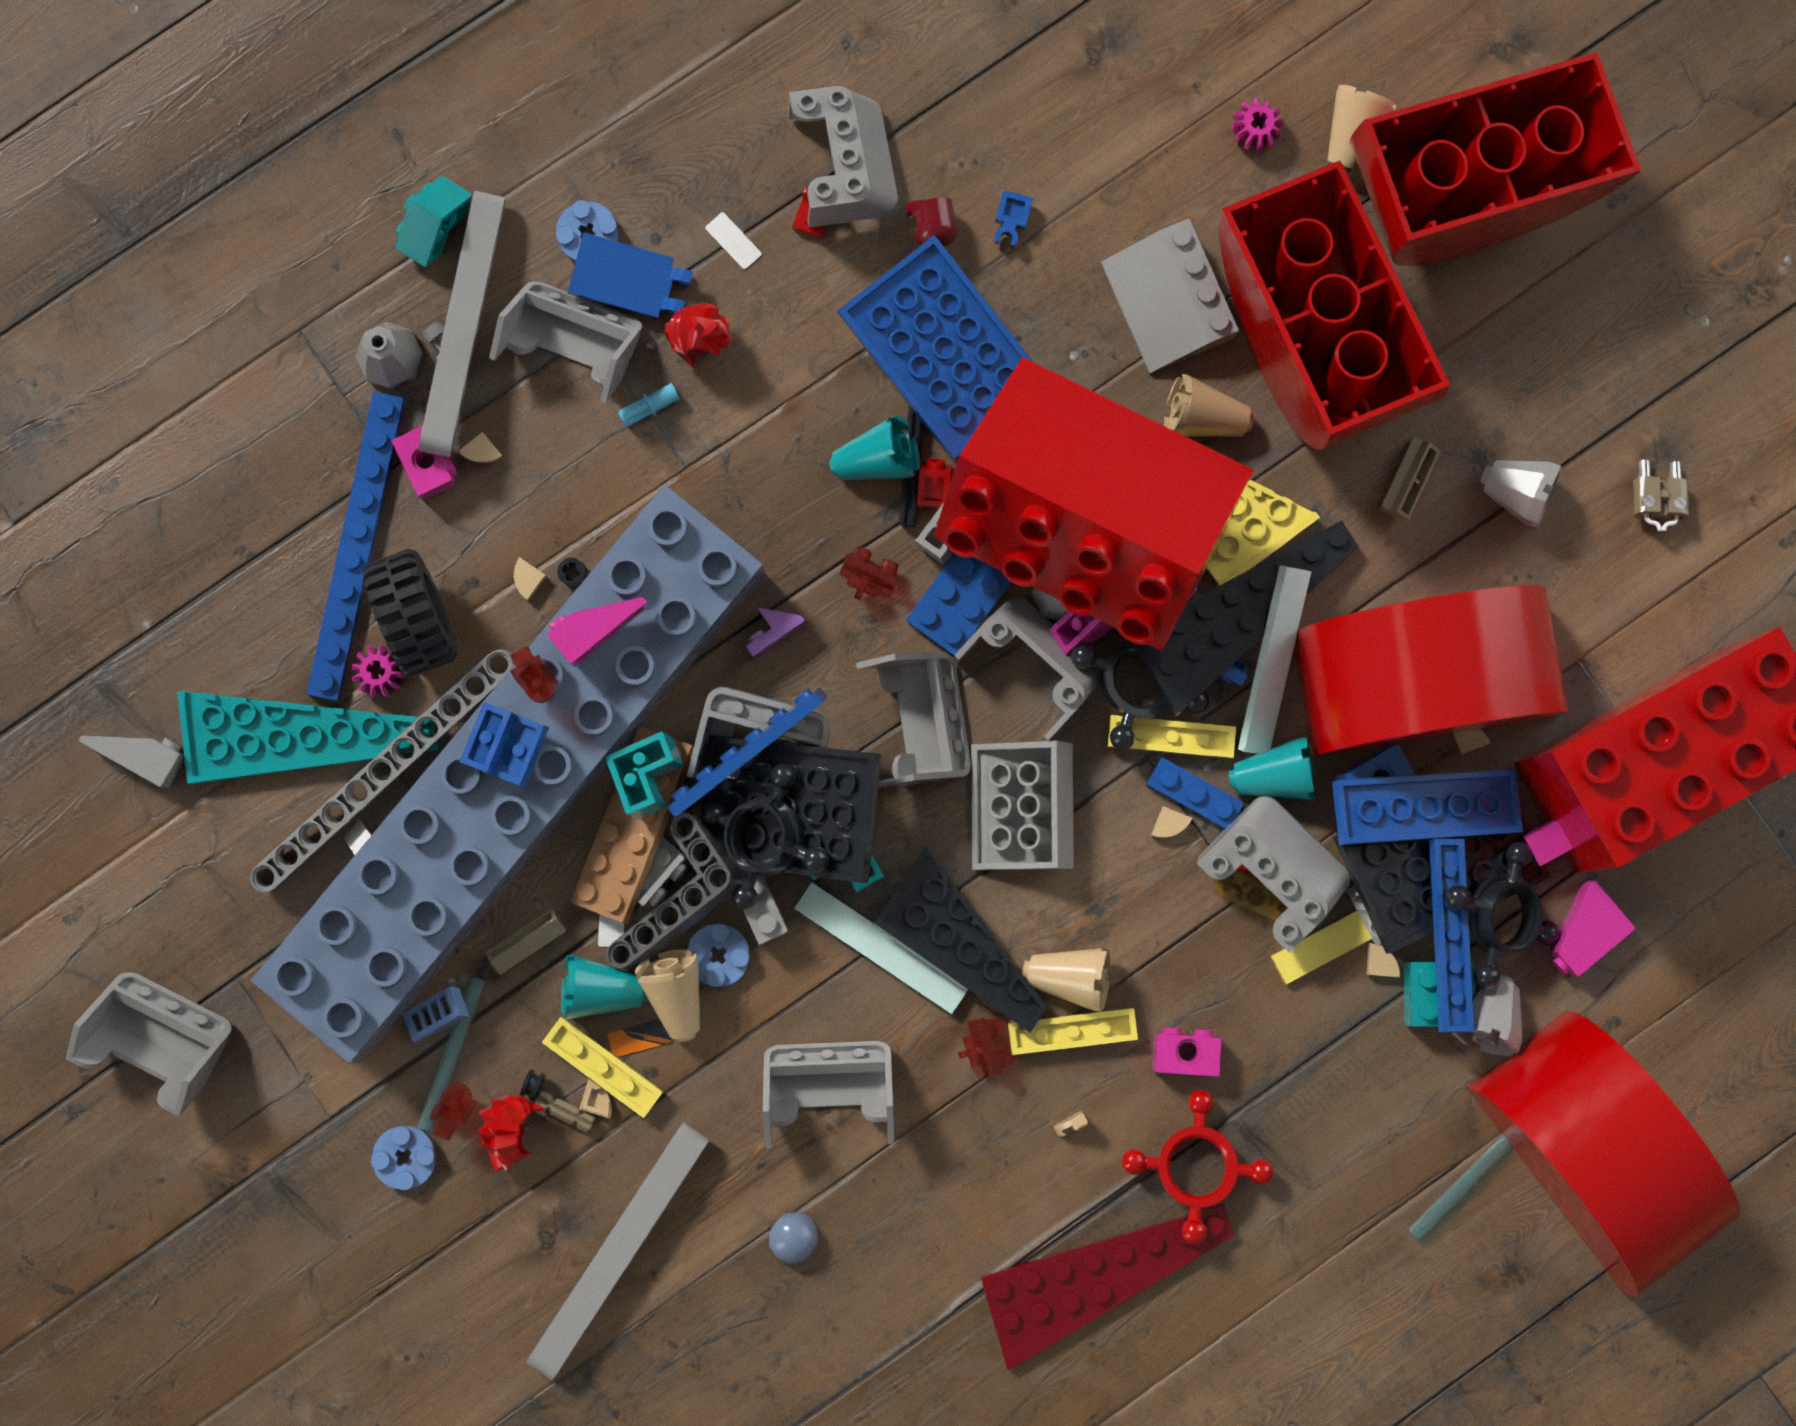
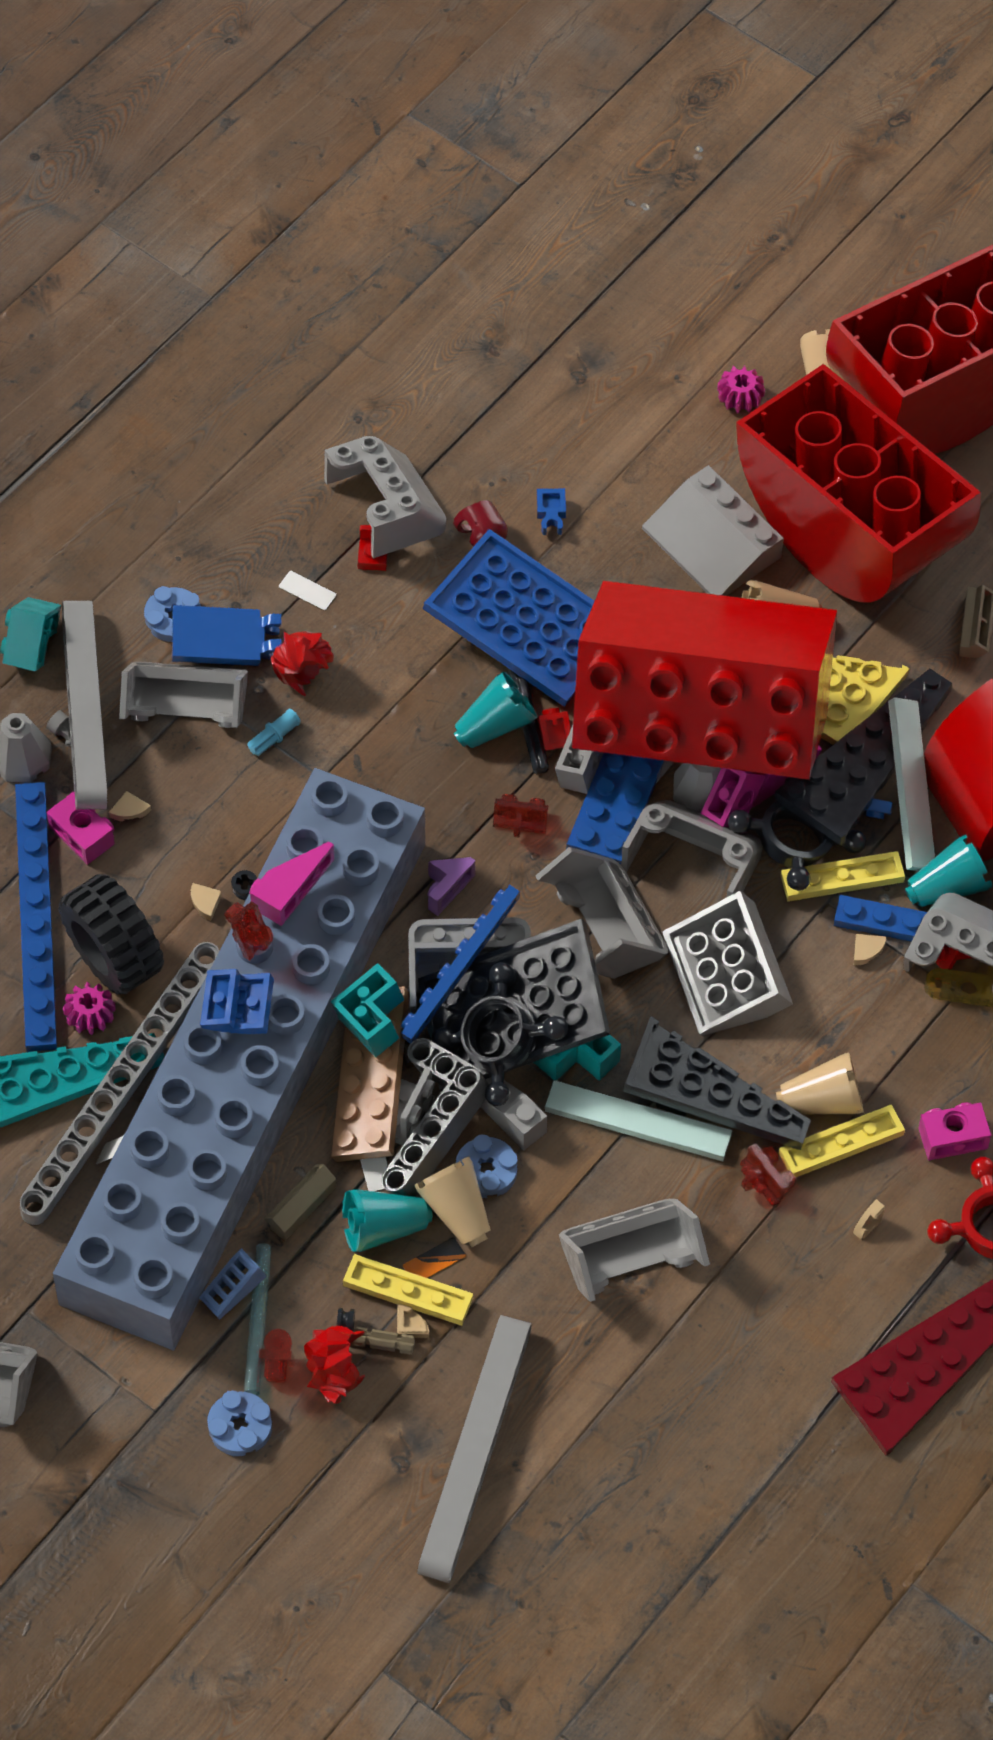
camera: 15 degrees left, 25 degrees down
(793, 1237) = (640, 1392): sand blue hair -> none

